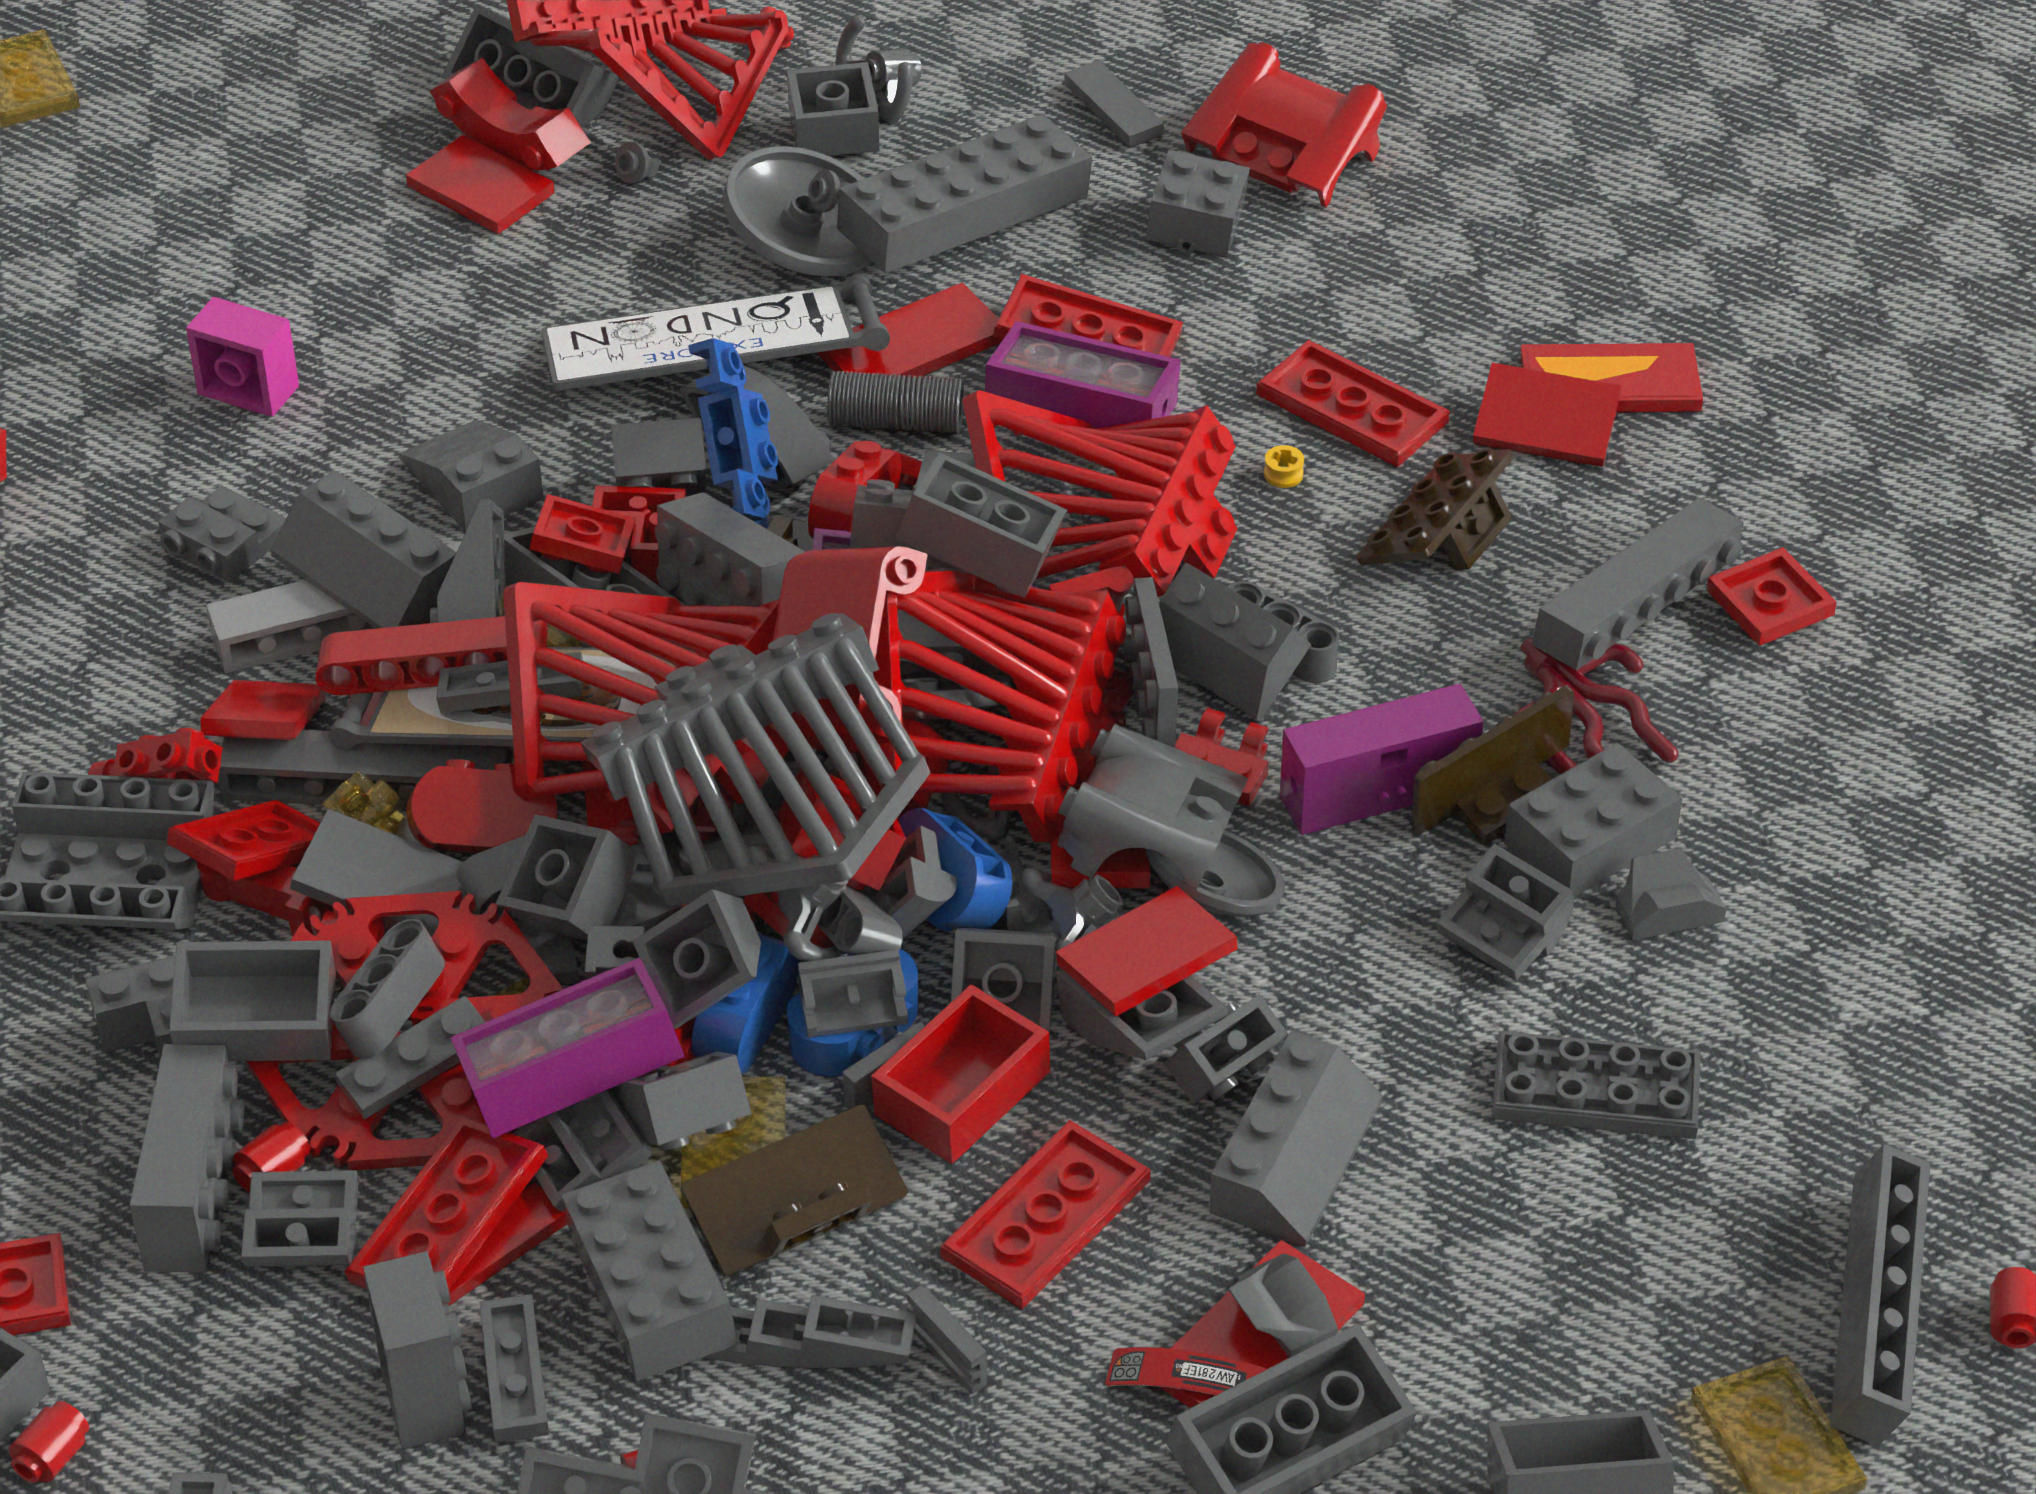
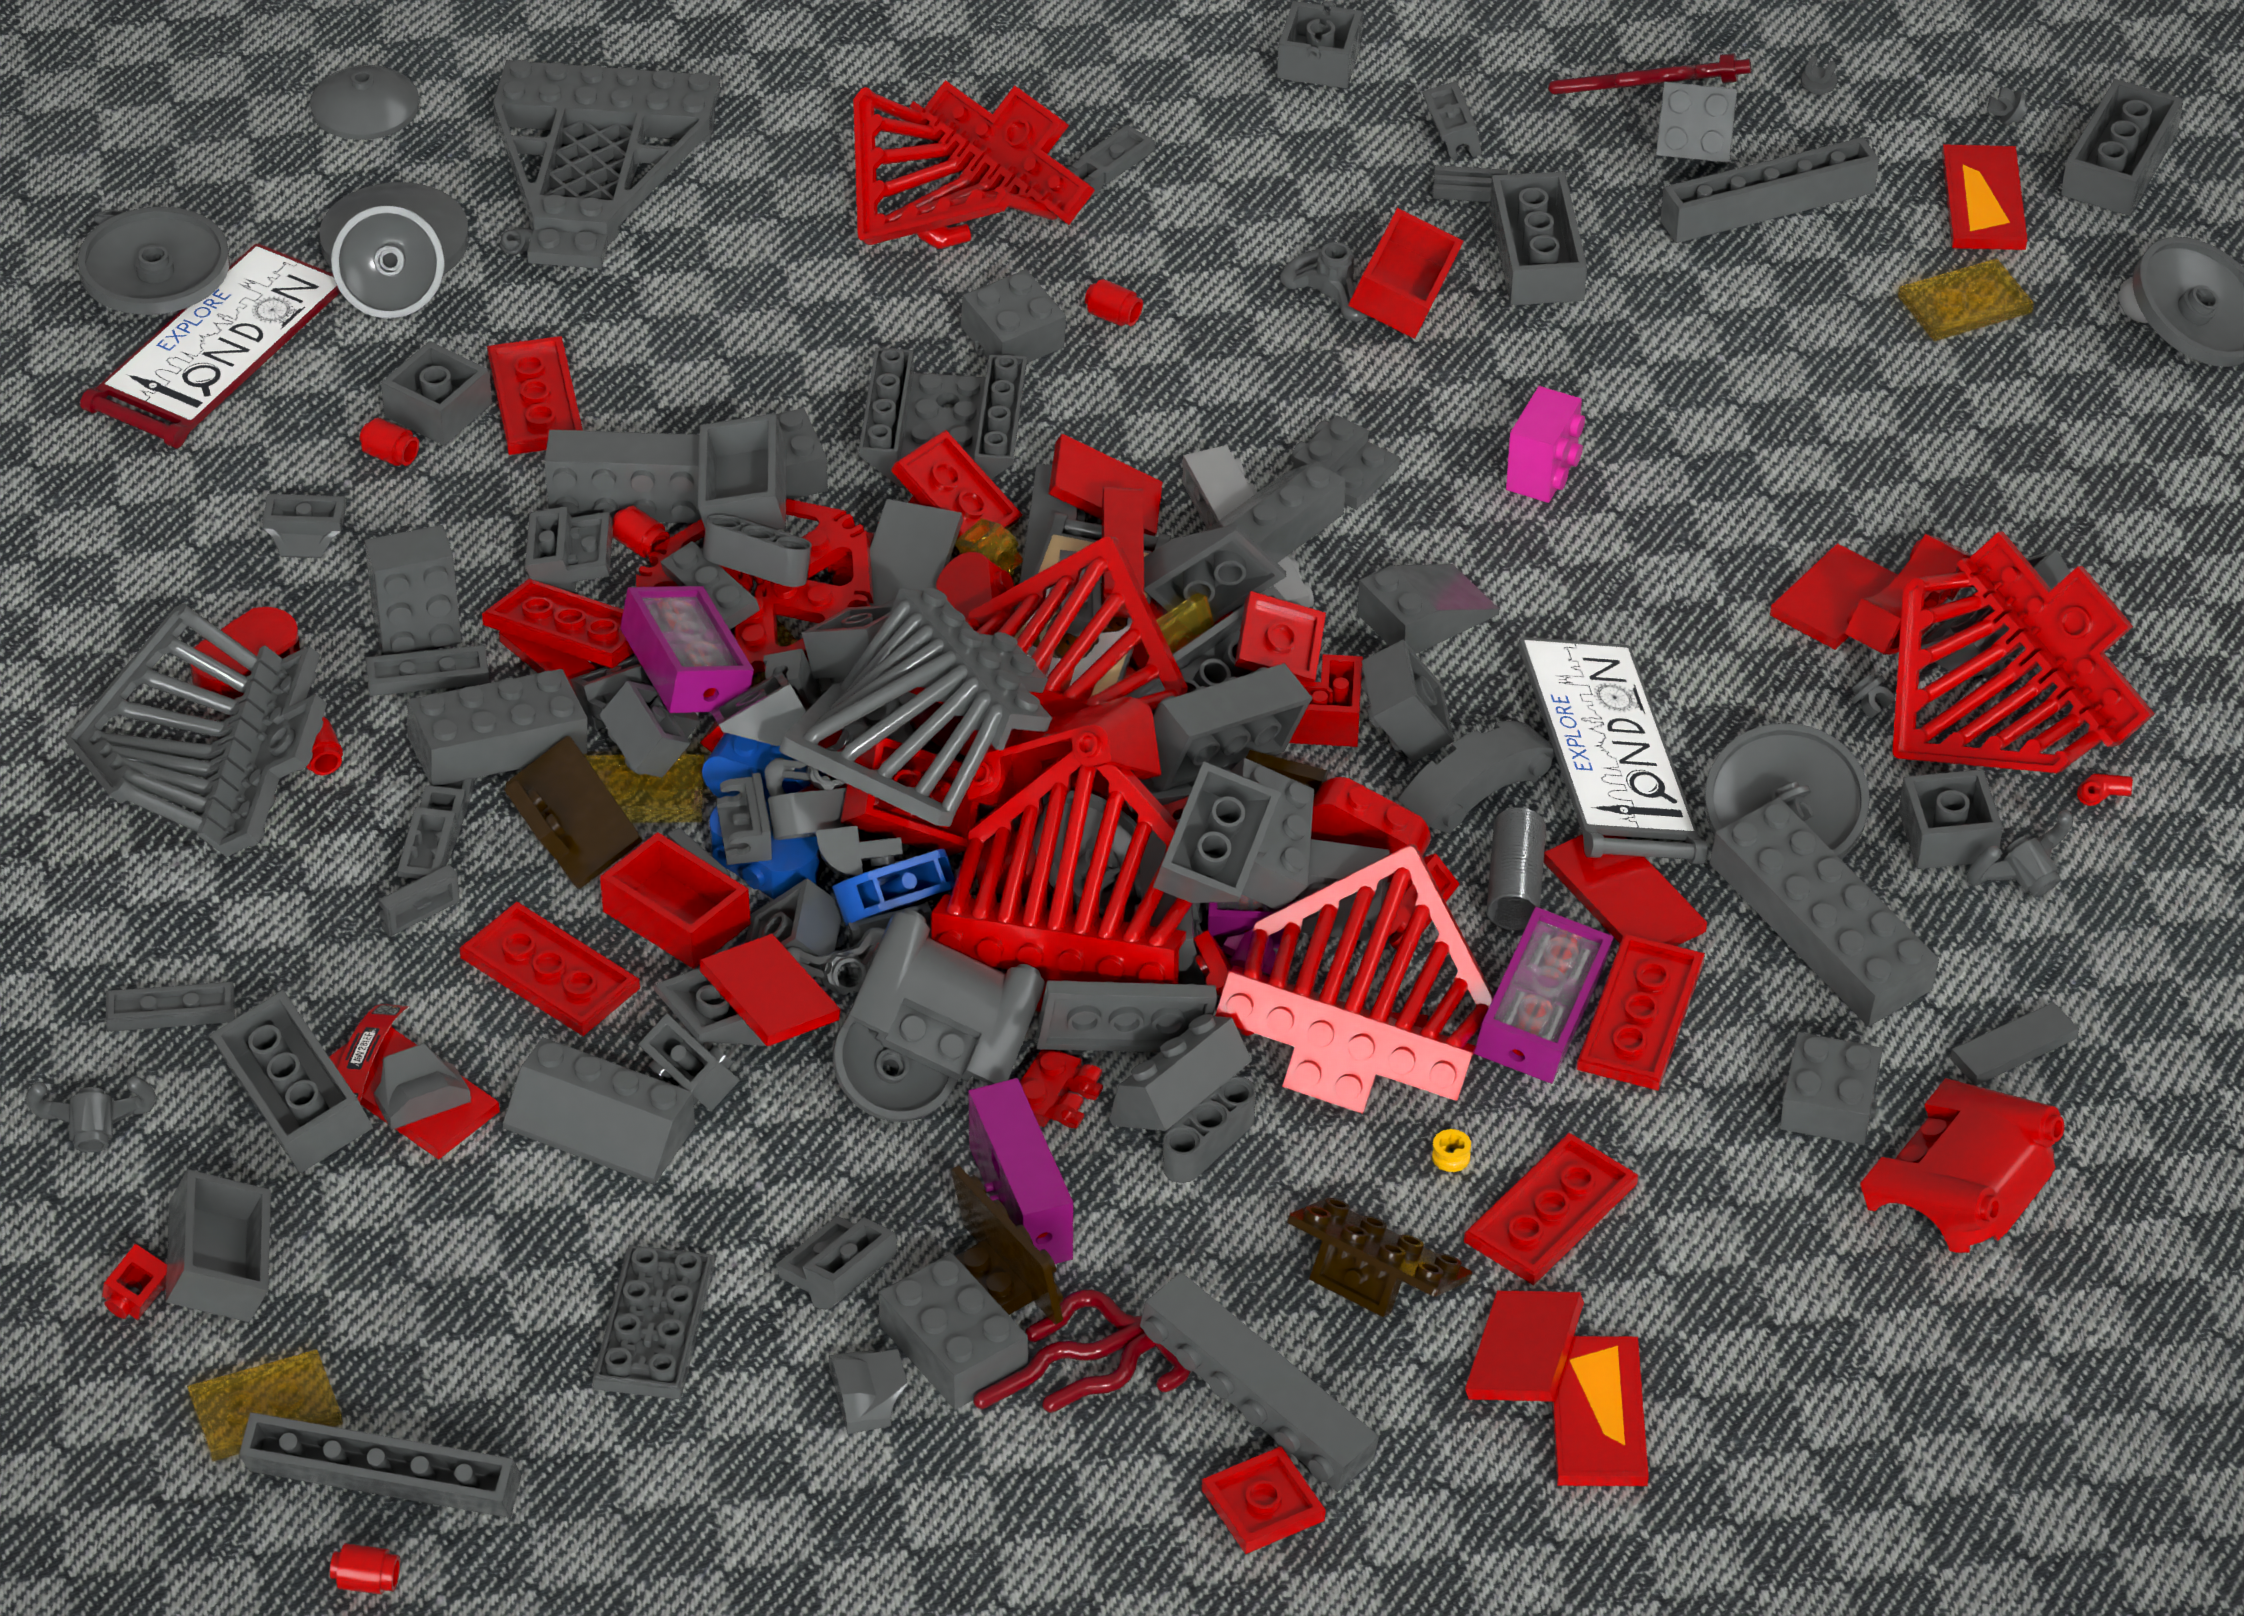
camera: 90 degrees right, 0 degrees up
(169, 756) = (1036, 427): red brick -> none
(736, 430) = (1411, 731): blue bracket -> none

